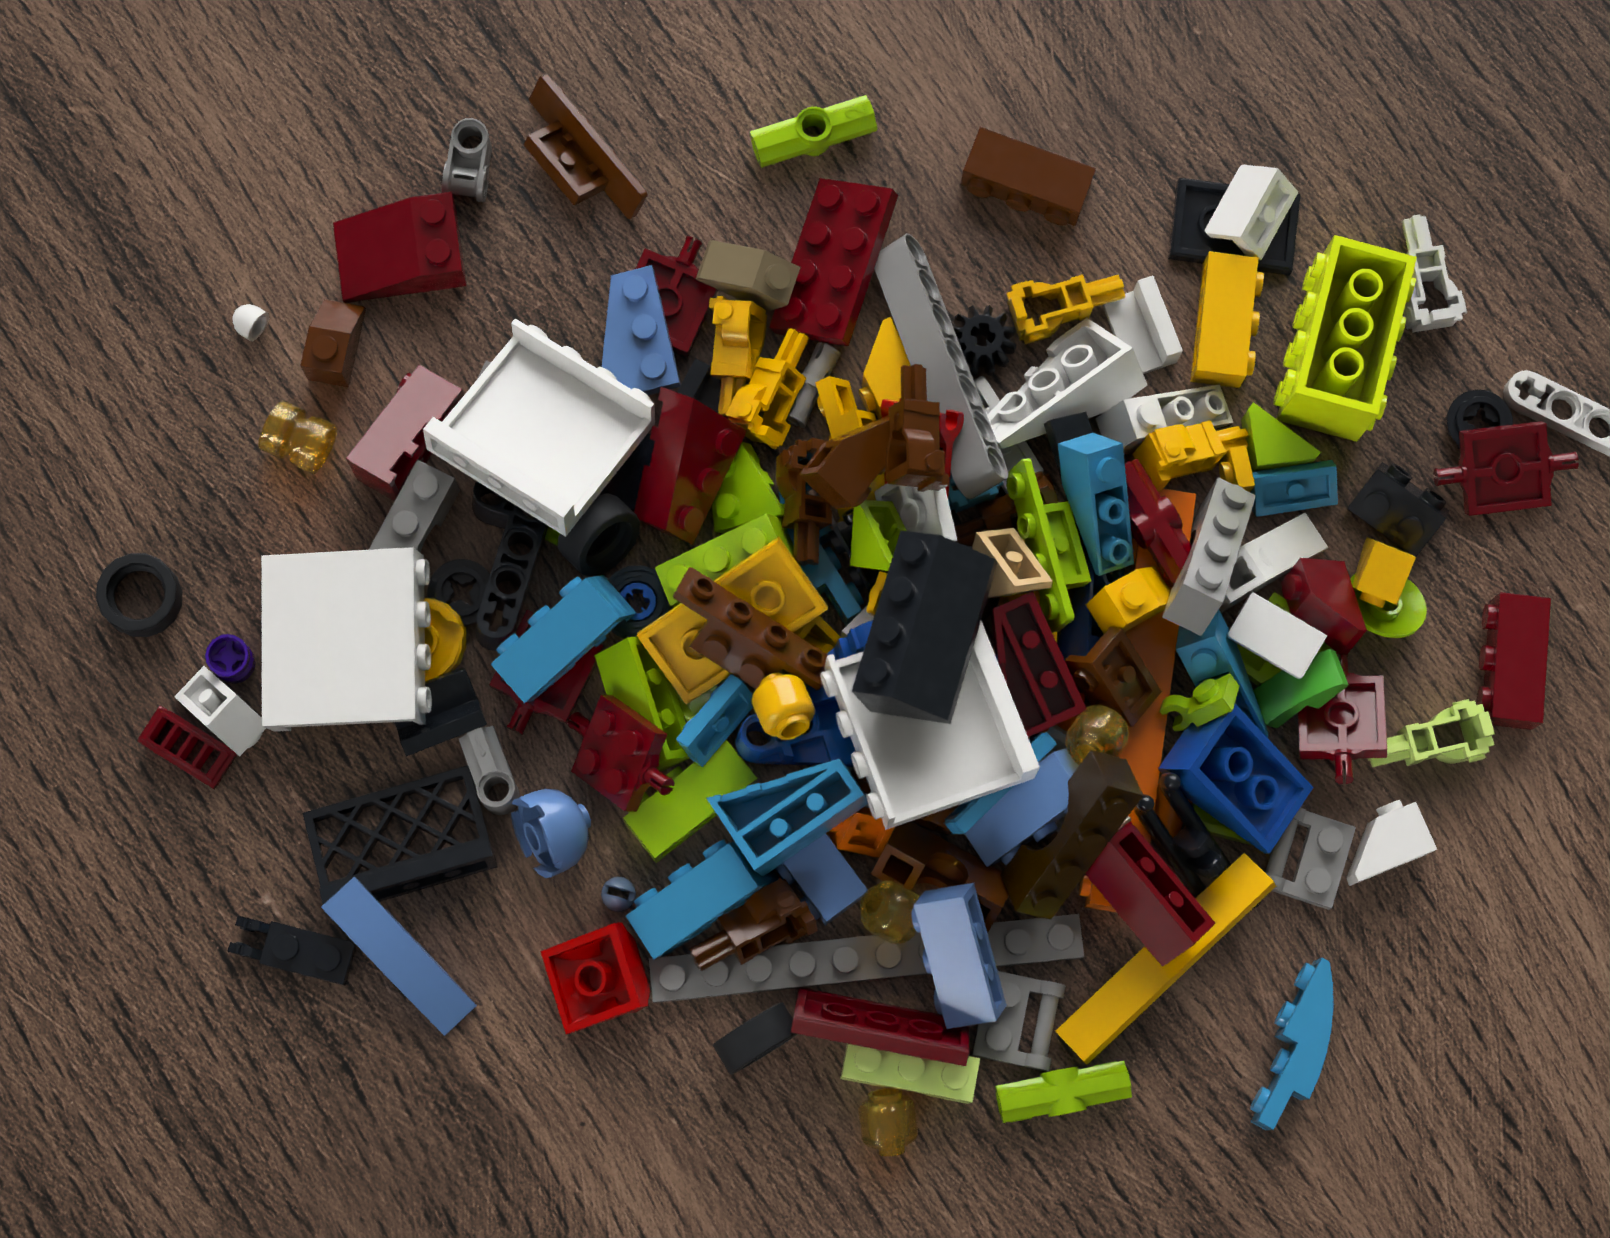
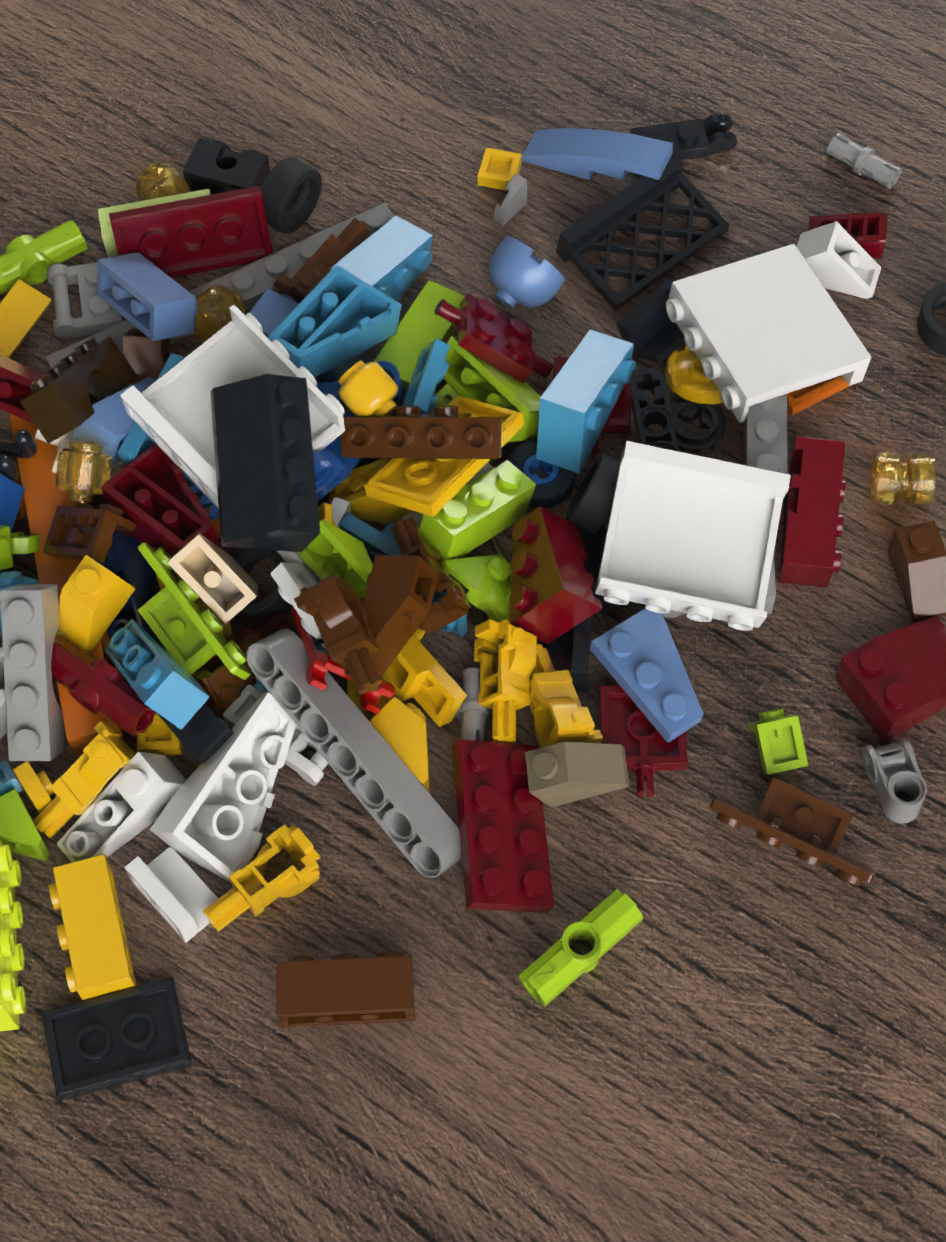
camera: 165 degrees right, 15 degrees down
(117, 832) = (864, 160): none -> light grey pin
(224, 653) = (854, 297): dark purple wheel -> none
(489, 768) = (596, 302): light grey piece -> none
(510, 991) = (498, 168): none -> yellow plate
(518, 943) = (514, 200): none -> light grey tile
(552, 240) = (779, 741): none -> lime bracket
(596, 977) = (434, 197): red slope -> none
(616, 903) = (449, 266): sand blue hinge -> none
(799, 1088) = (216, 167): none -> black brick
(997, 339) = (311, 814): black gear -> none
(1252, 209) = (101, 1045): white panel -> none

